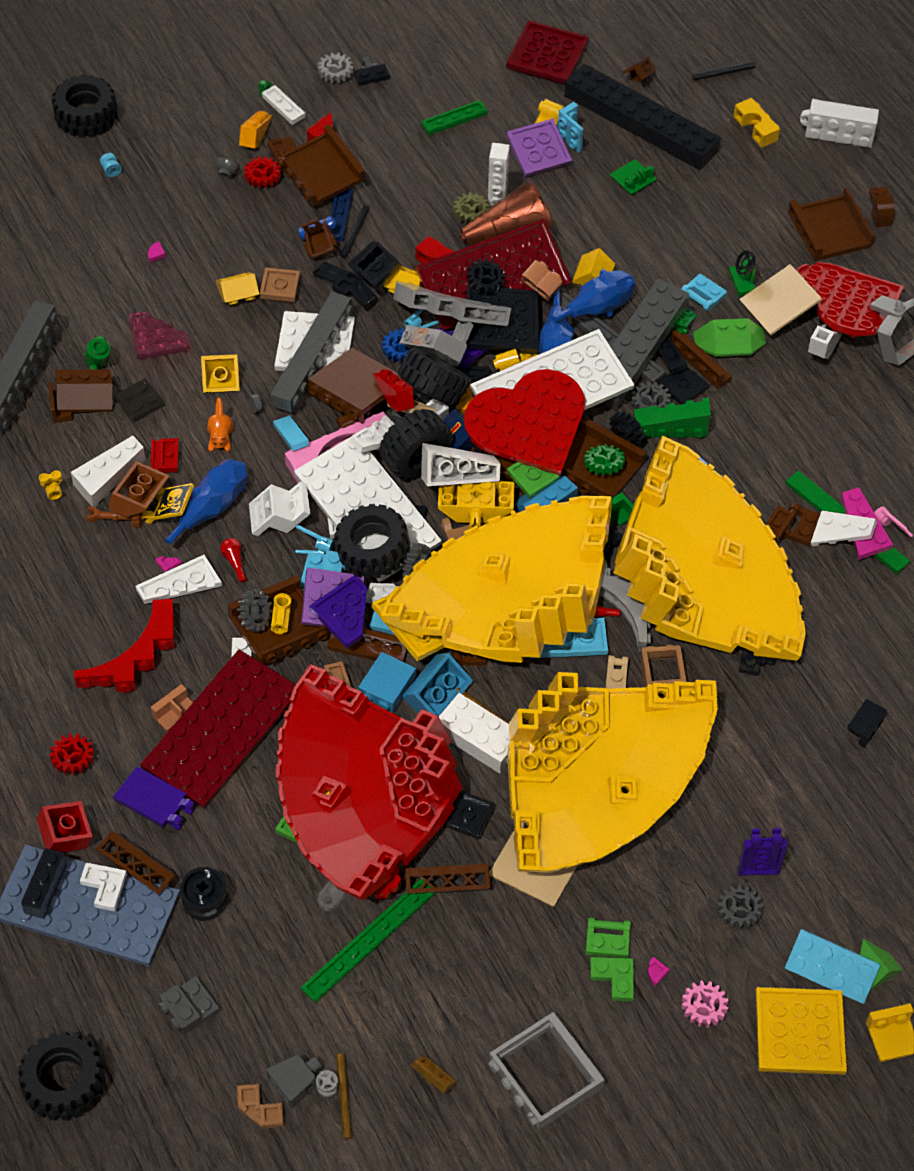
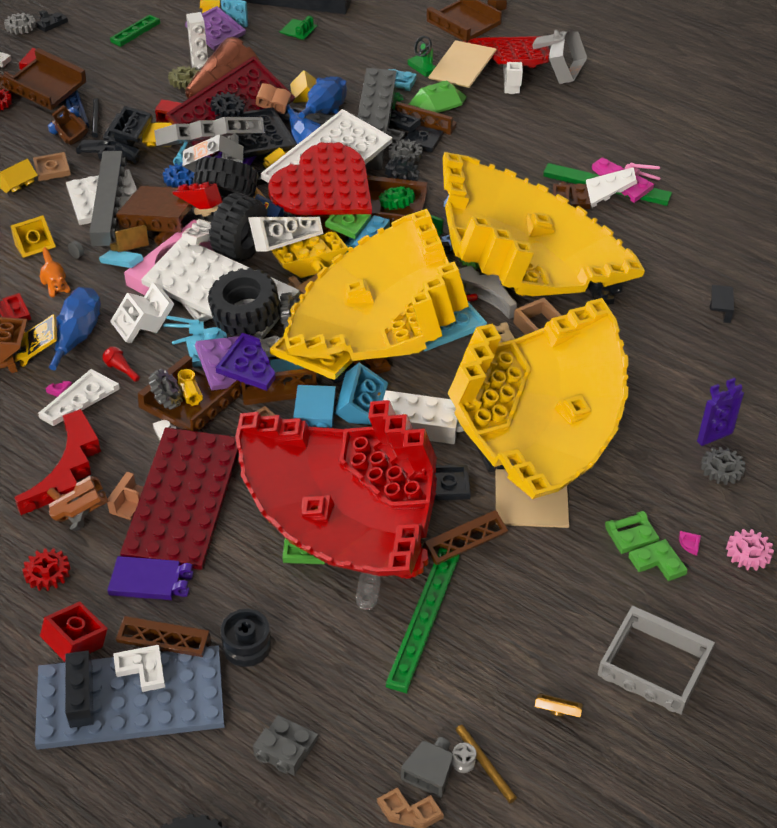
camera: 25 degrees left, 10 degrees down
(124, 699) = (77, 502): none -> dark orange piece
(309, 414) = (130, 239): none -> pearl gold panel
(675, 420) = (431, 156): green wedge -> none

